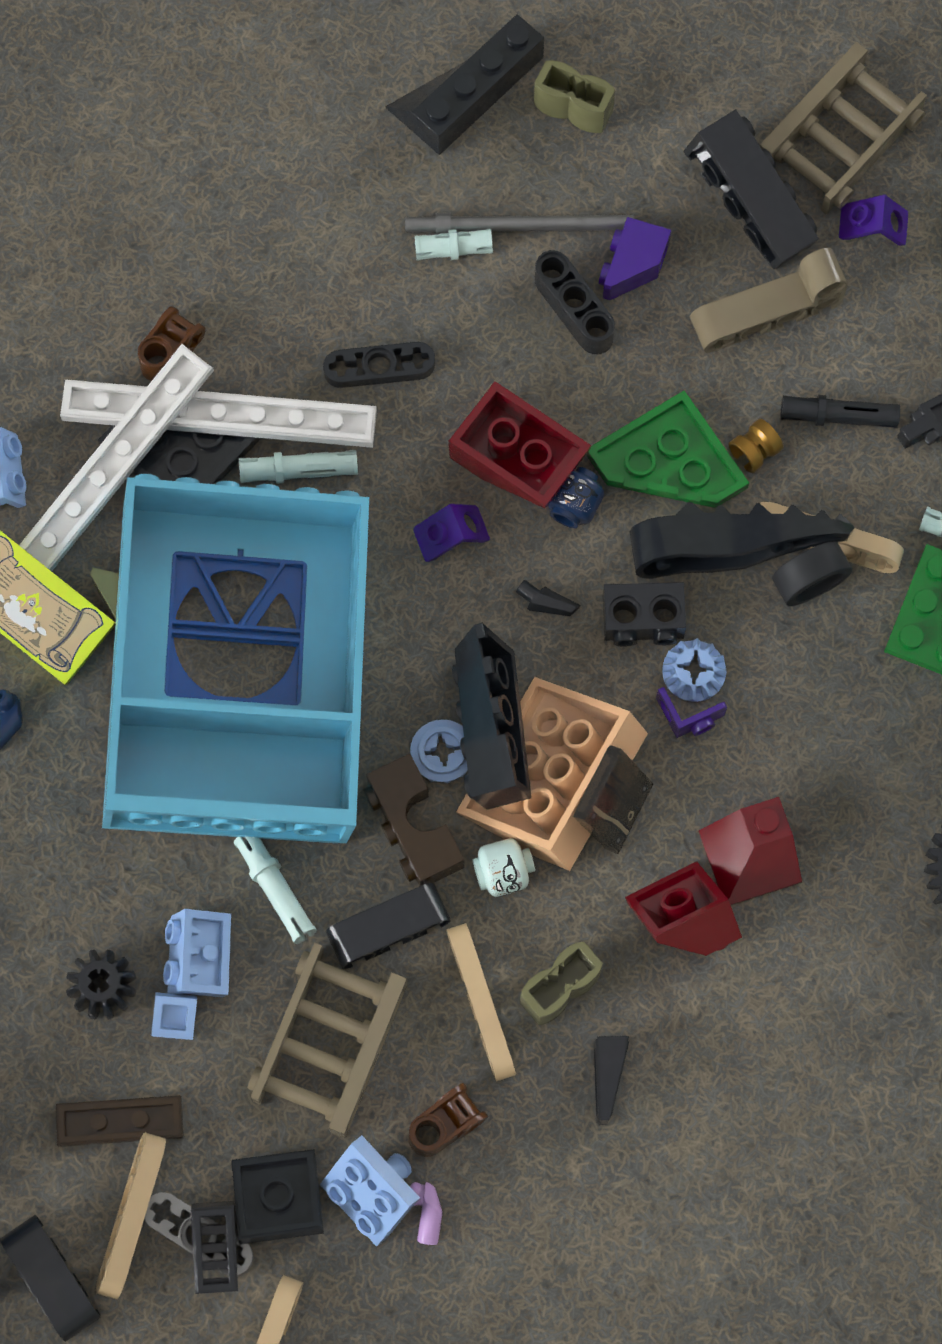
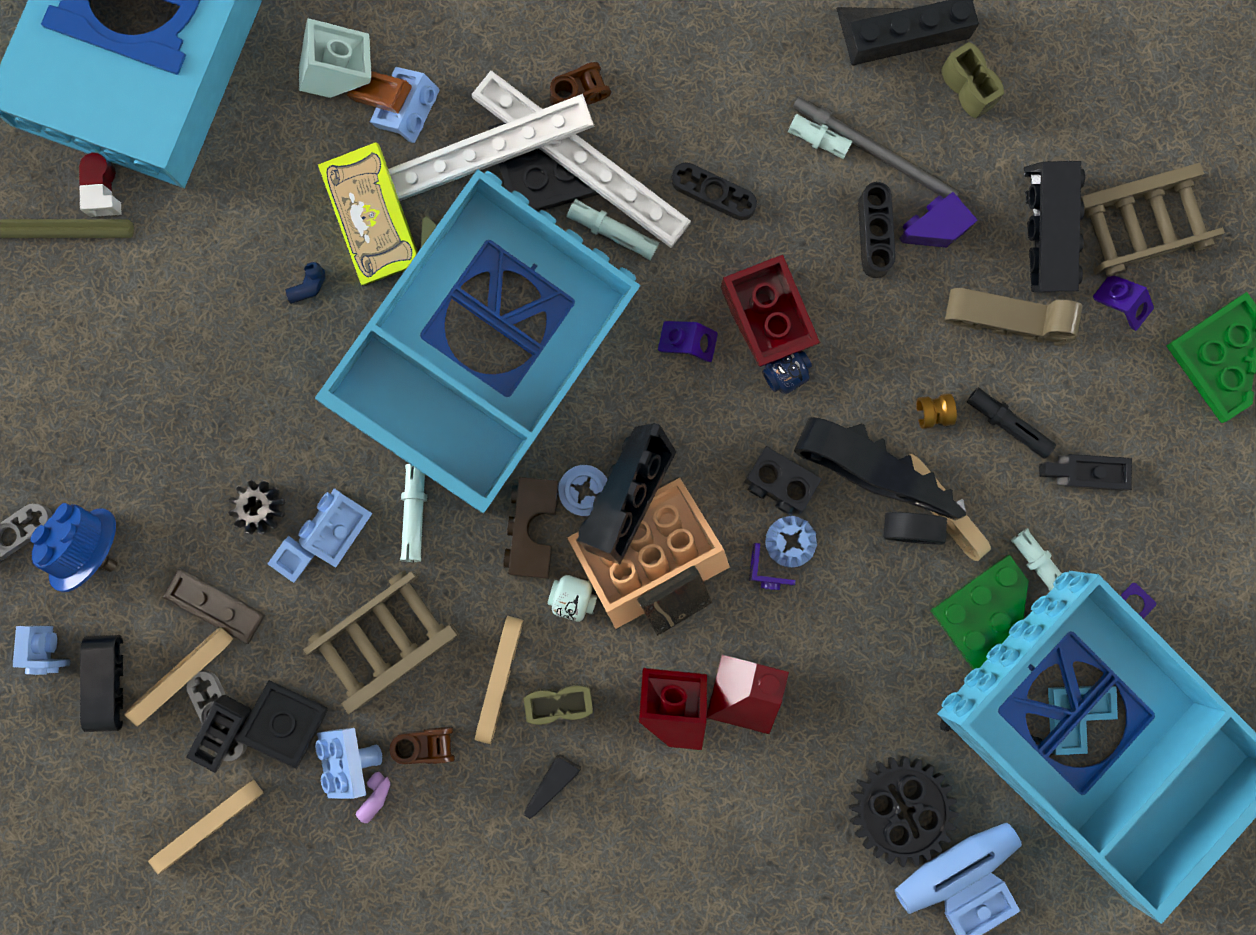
camera: 25 degrees right, 10 degrees up
(386, 924) = (470, 588): black beam -> none
(546, 600) = (721, 429): black bar -> none
(670, 456) = (872, 381): green plate -> none

